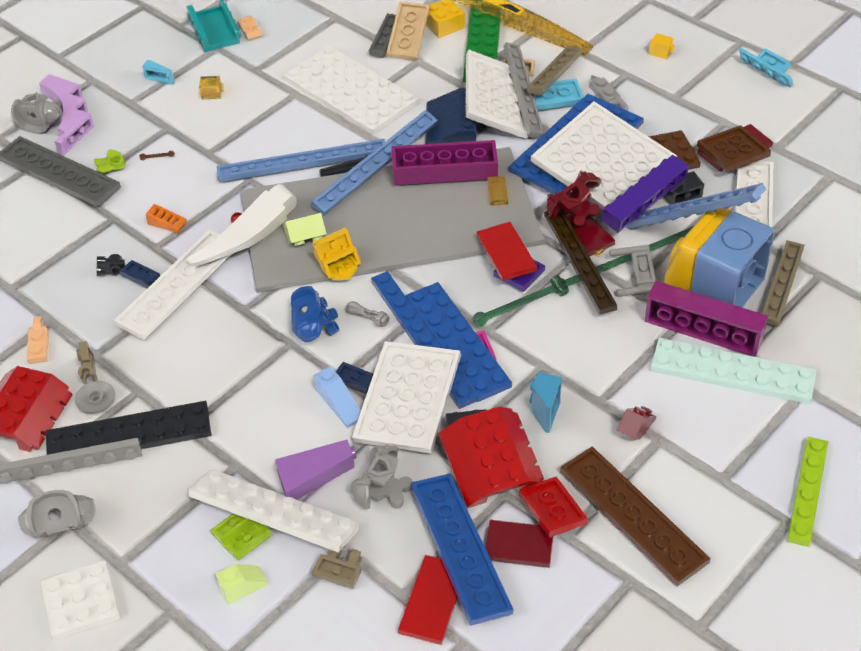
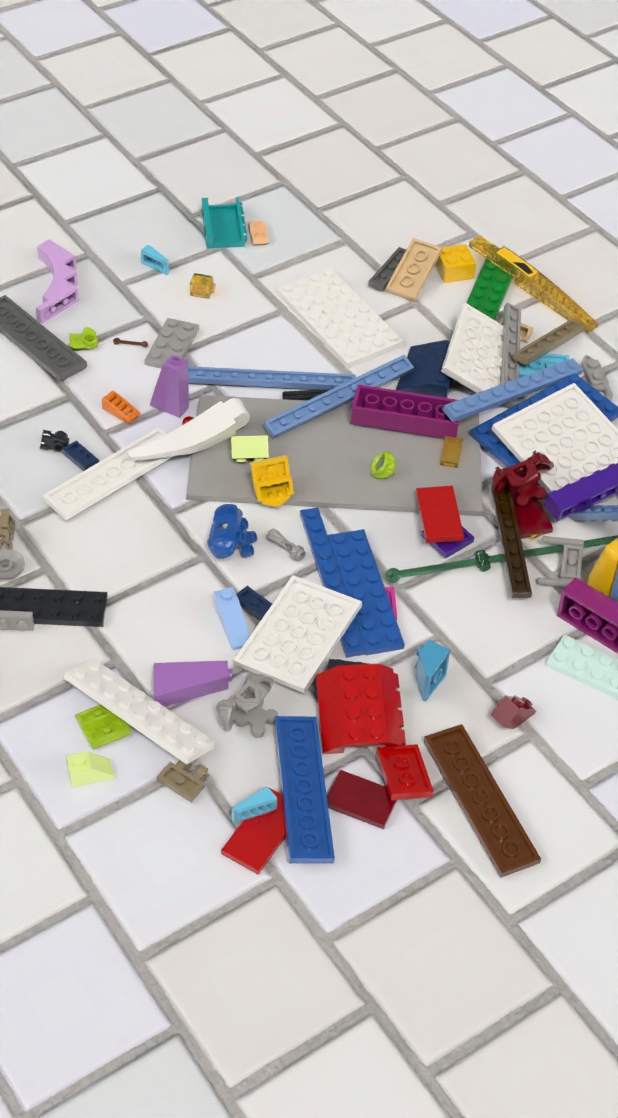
camera: 10 degrees right, 0 degrees up
(41, 116) = (32, 276): light grey piece -> none
(198, 149) = (173, 339): none -> light grey plate
(213, 188) = (172, 388): none -> medium lavender slope
(420, 575) = (257, 804): none -> medium azure slope
(443, 220) = (388, 468): none -> lime piece
(535, 121) = (511, 390): none -> medium blue plate

